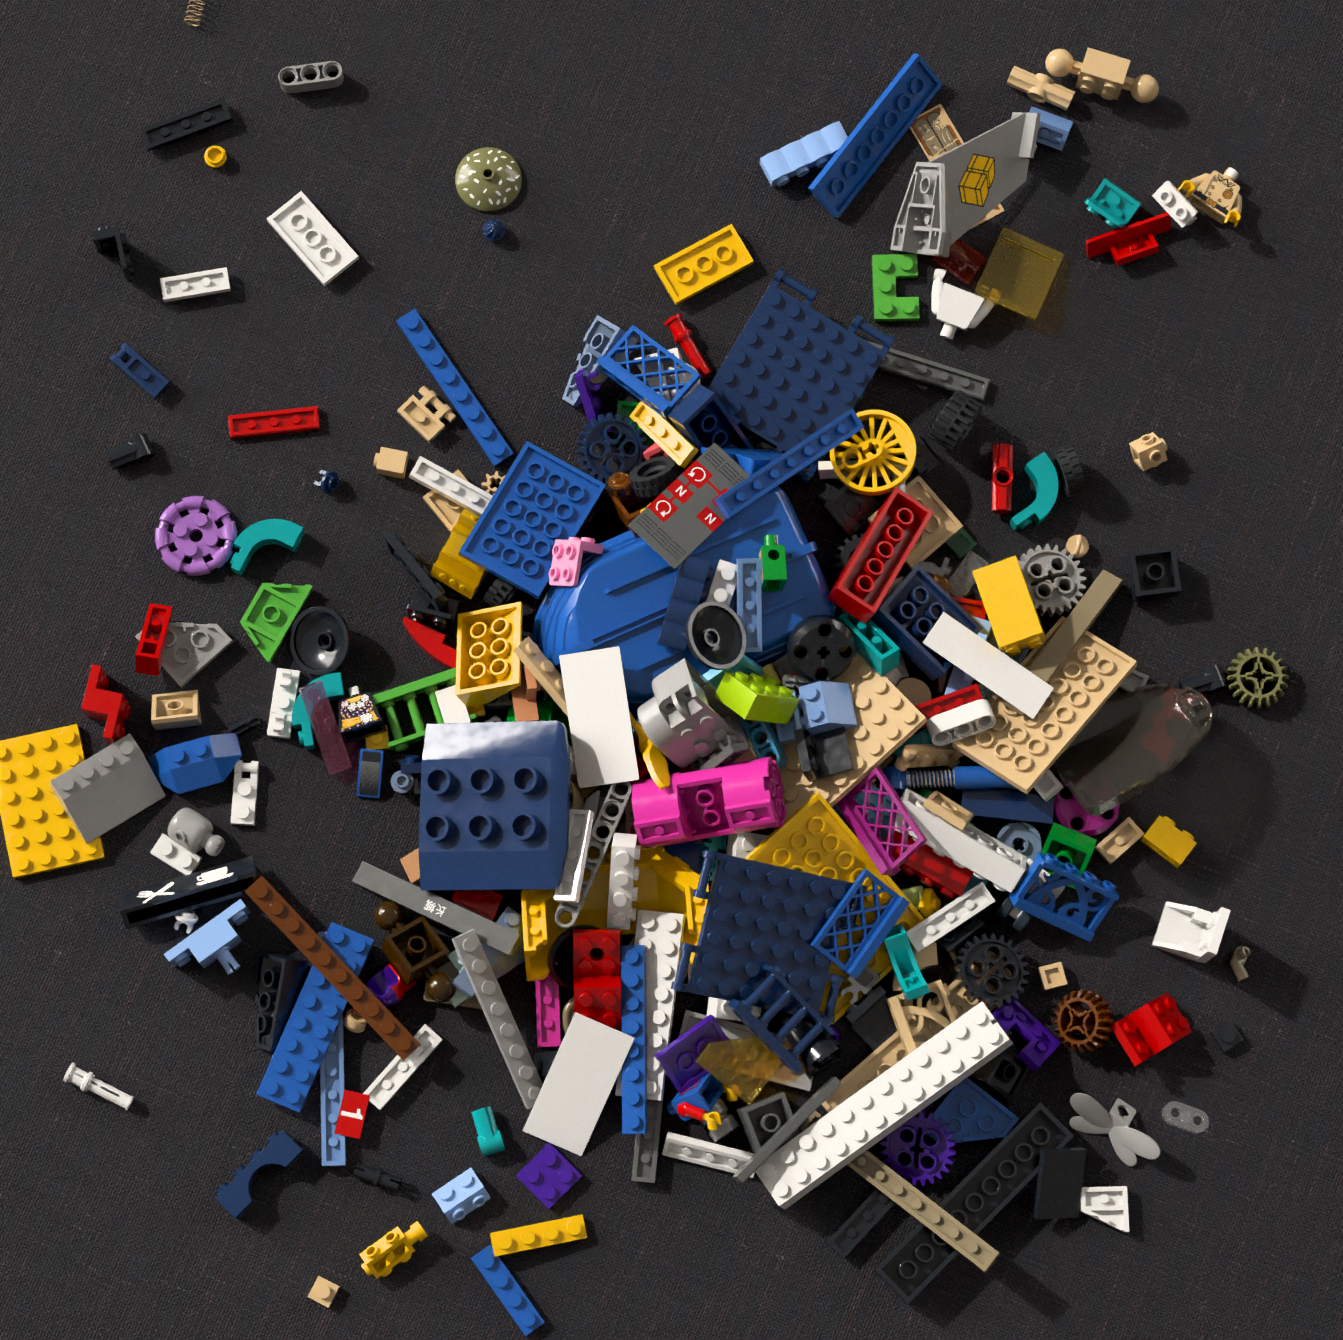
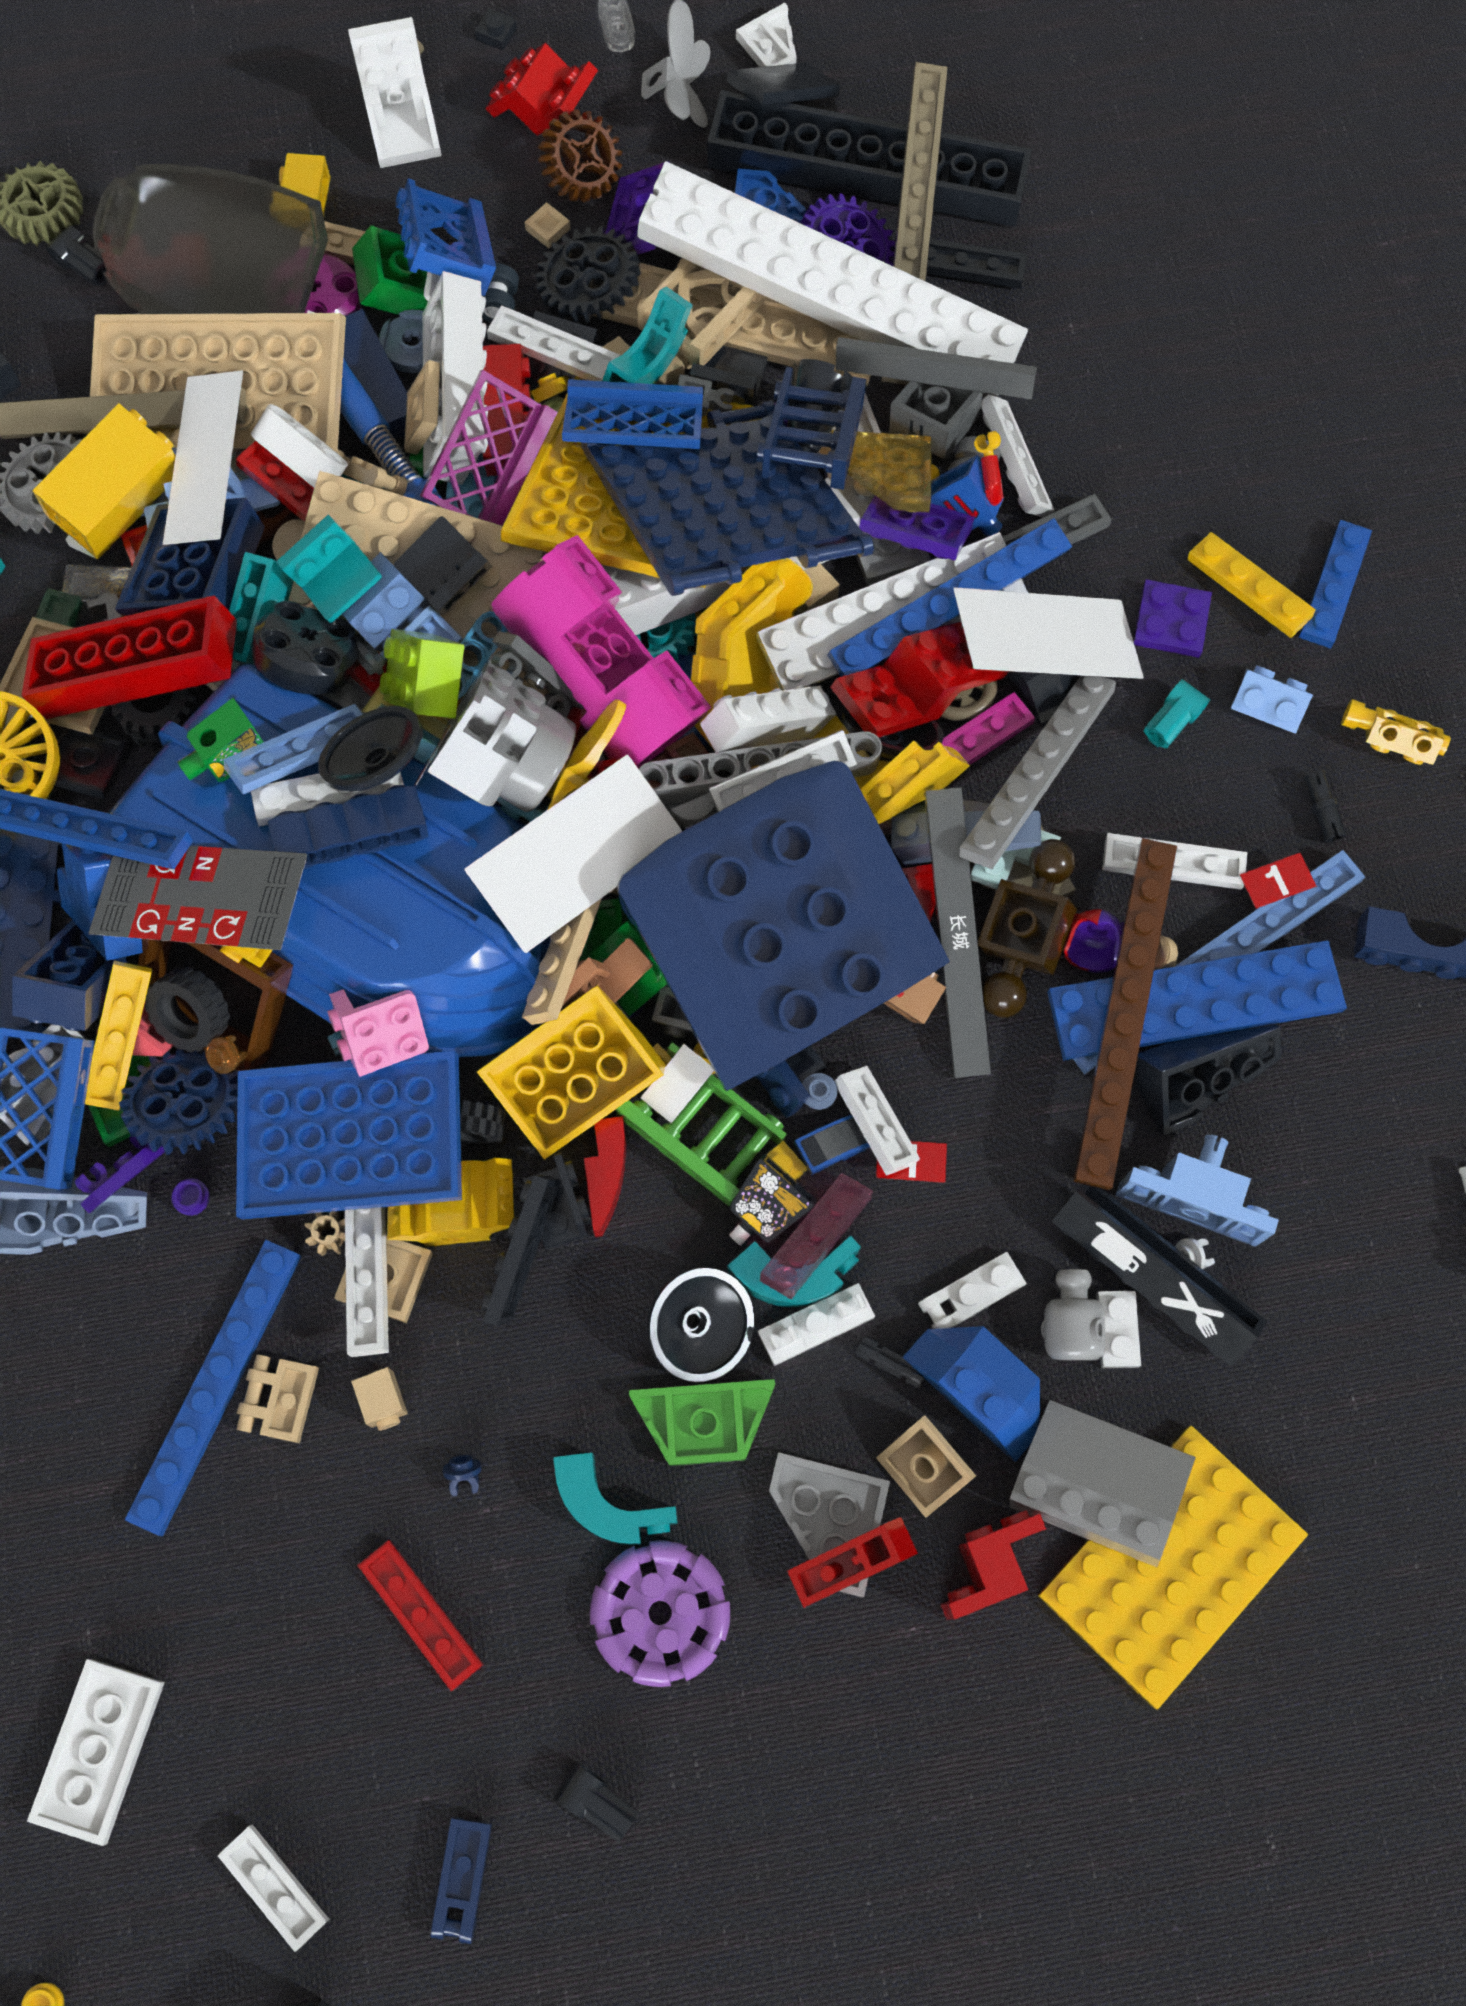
camera: 120 degrees left, 5 degrees down
(335, 810) = (929, 1168): none -> red sticker
(367, 802) = (876, 1120): none -> white plate
(562, 429) = (190, 1197): none -> dark purple plate
(700, 672) = (432, 755): none -> sticker
(857, 689) = (330, 568): none -> teal bracket

